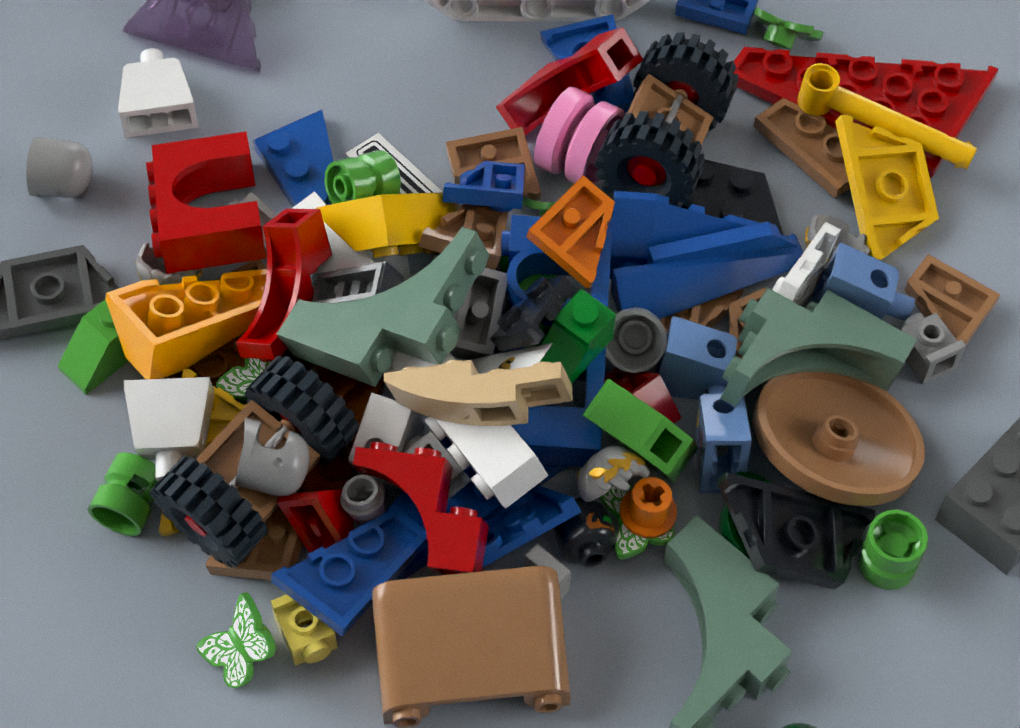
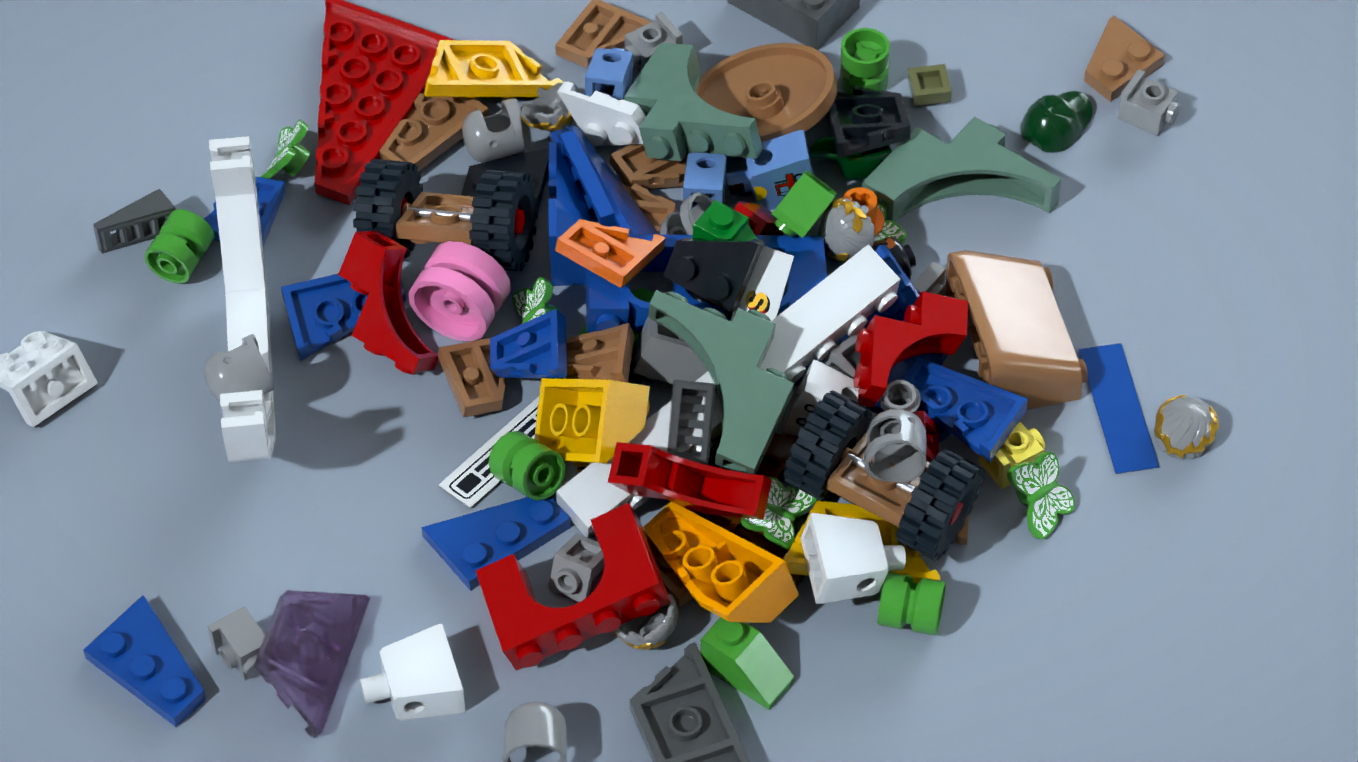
camera: 95 degrees left, 5 degrees down
(464, 396) = (818, 289): tan slope -> none
(799, 190) = (494, 135): none -> light grey helmet
(822, 92) = (383, 104): yellow piece -> none
(866, 624) = (929, 84): none -> olive plate

